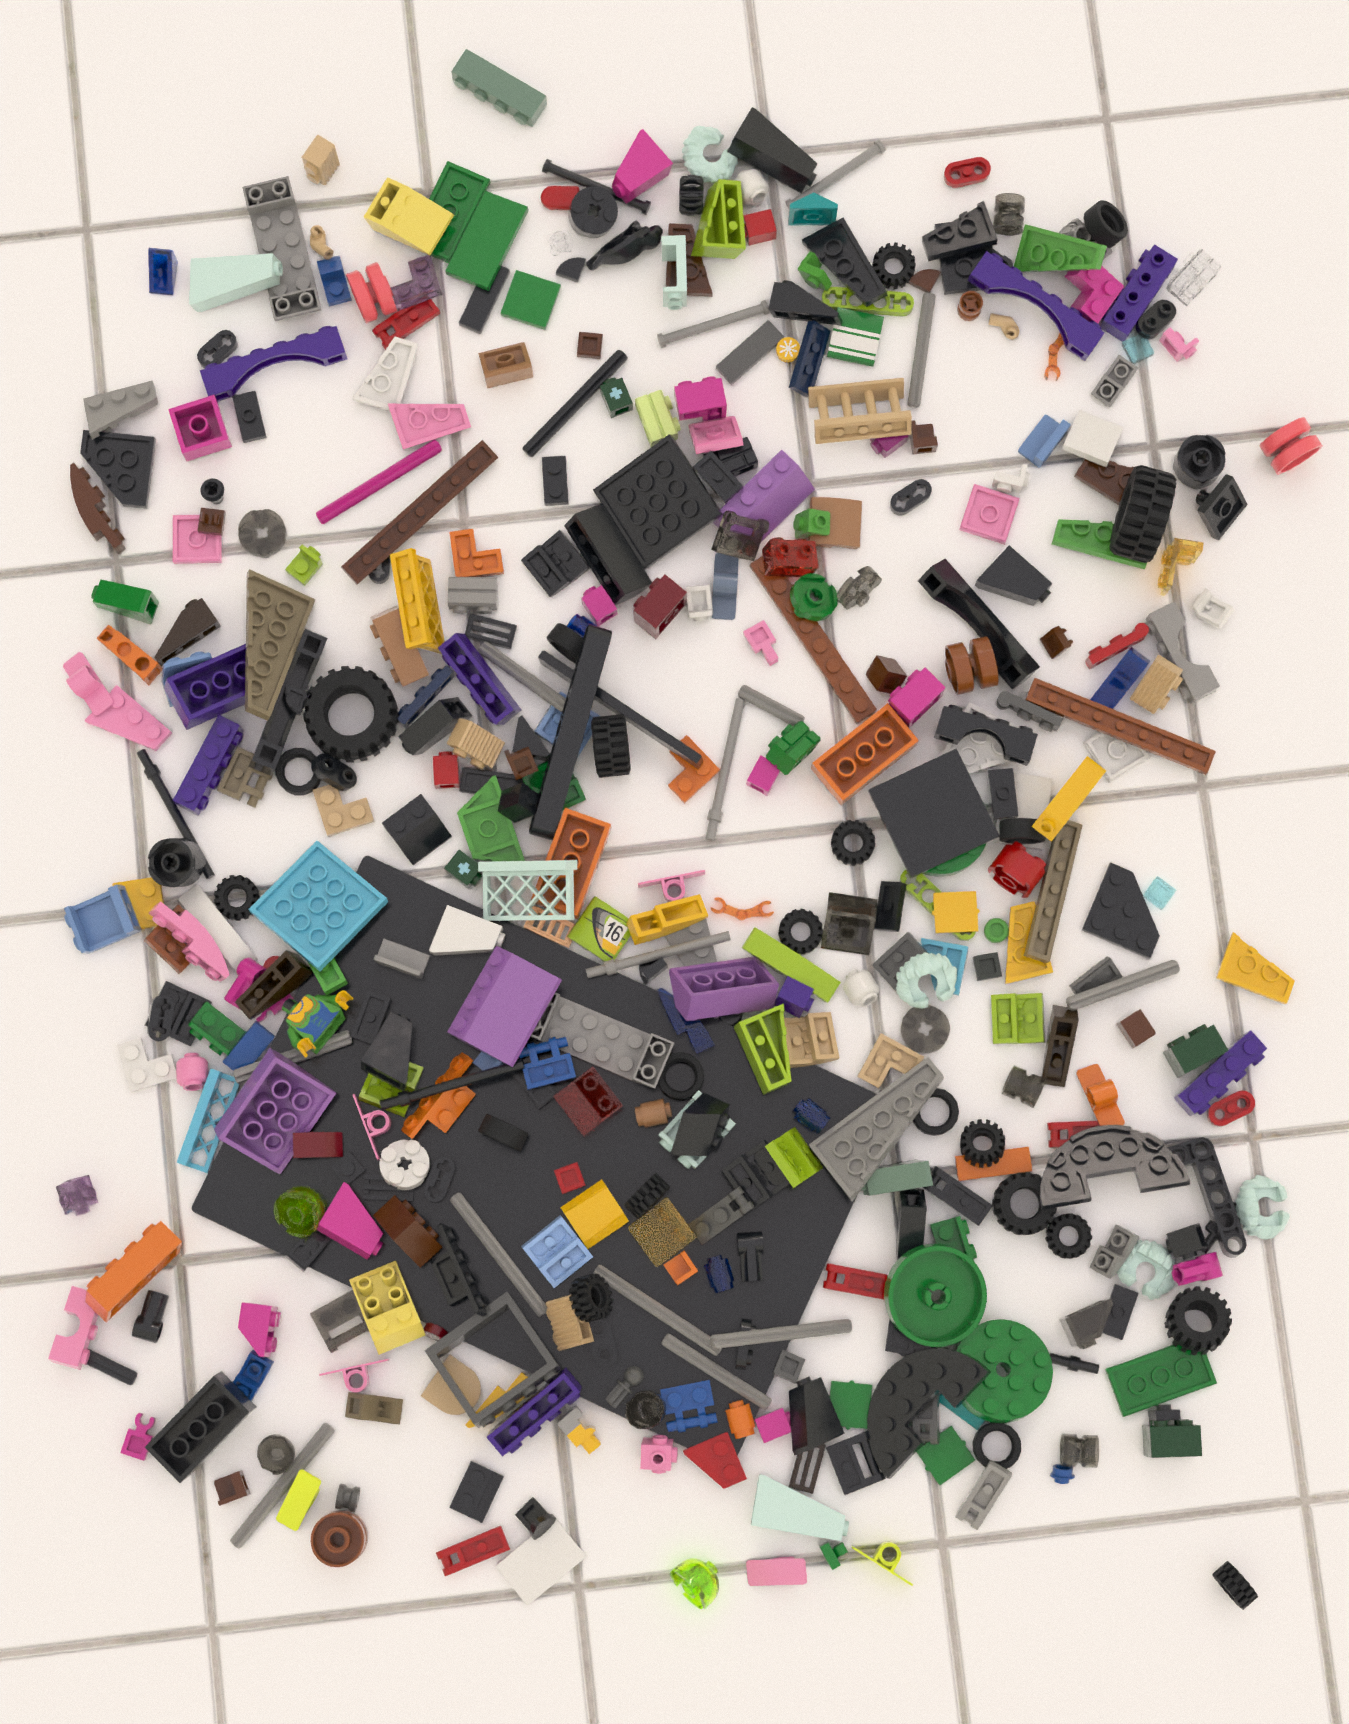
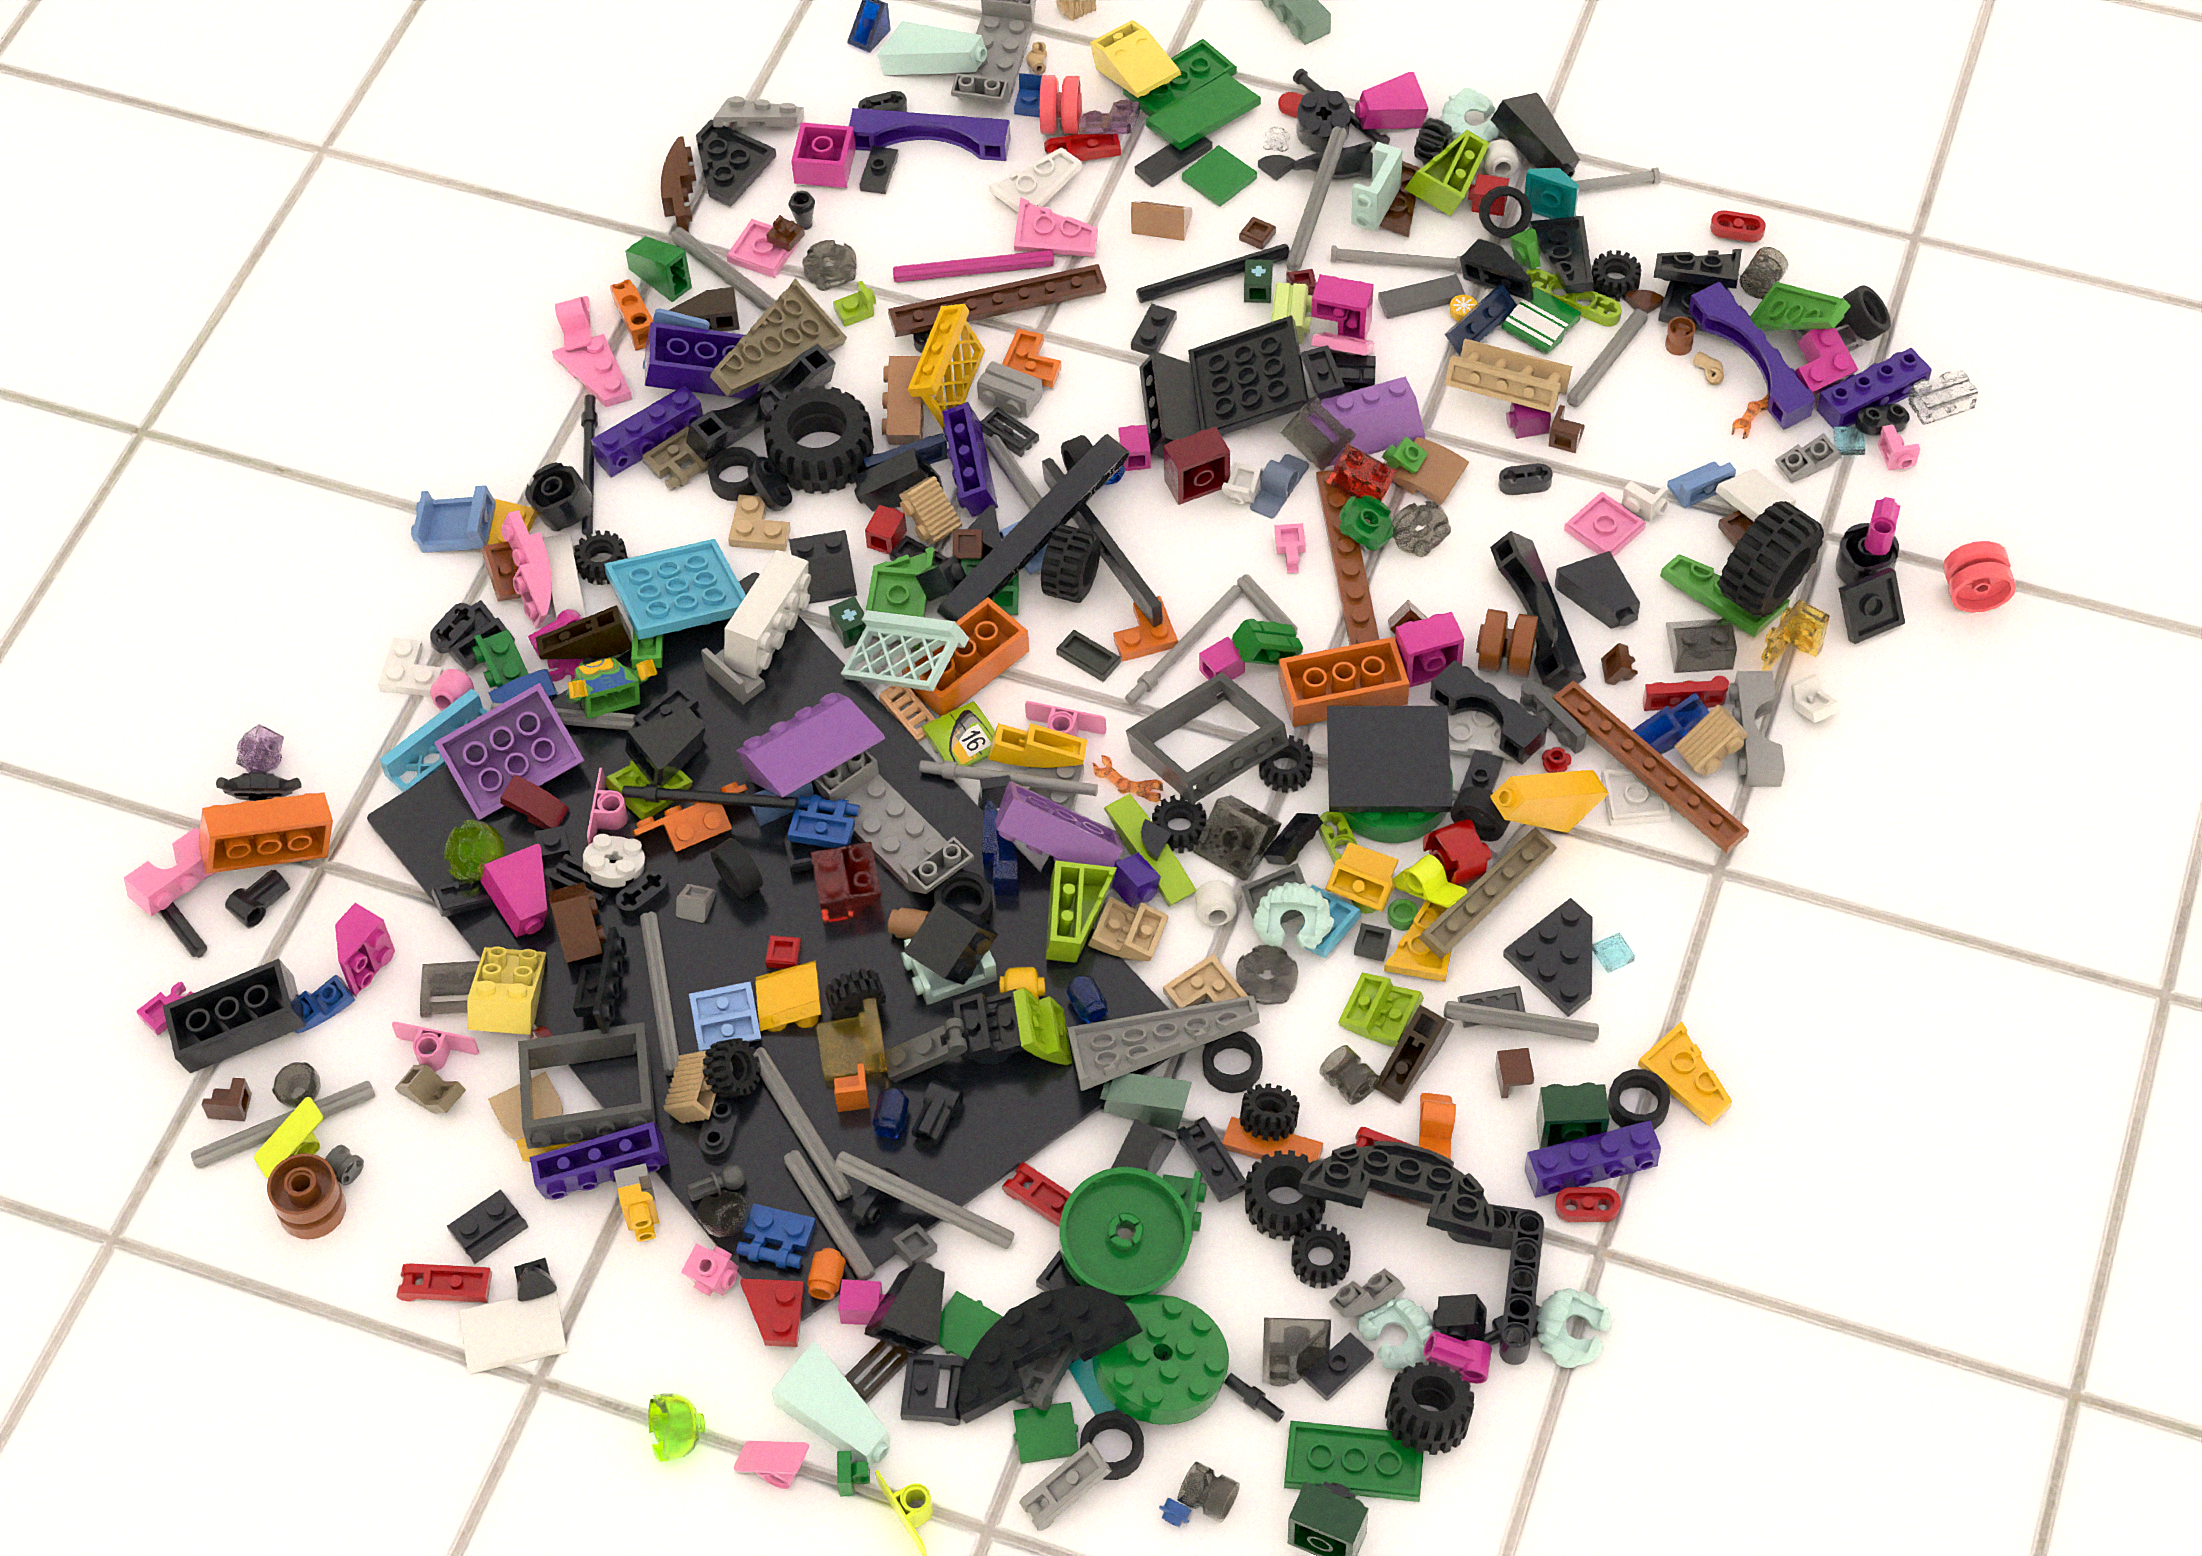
camera: 30 degrees right, 25 degrees down
(94, 1223) = (258, 786): none -> black piece
(181, 577) = (722, 269): none -> light grey axle
(405, 899) = (767, 614): none -> white brick
(465, 934) = (810, 673): white slope -> none
(481, 1166) = (694, 903): none -> light grey slope
(555, 563) = (1111, 399): black slope -> none
(626, 297) = (1316, 198): none -> light grey axle
(649, 379) = (1302, 277): none -> dark red tile
(657, 812) = (1088, 655): none -> pearl dark grey tile
(760, 1128) = (1021, 978): none -> yellow head
(771, 234) = (1490, 197): none -> black tyre
(794, 961) = (1154, 838): none -> black tile
(821, 870) = (1224, 765): none -> dark grey window
(960, 928) = (1359, 886): none -> yellow slope
(1008, 903) = (1428, 881): none -> neon yellow piece
(1043, 751) = (1555, 766): none -> red plate
(1107, 591) = (1701, 645): none -> clear smoke slope
(1207, 437) = (1882, 526): none -> dark pink piece
(1243, 995) = (1638, 1079): none -> black tyre

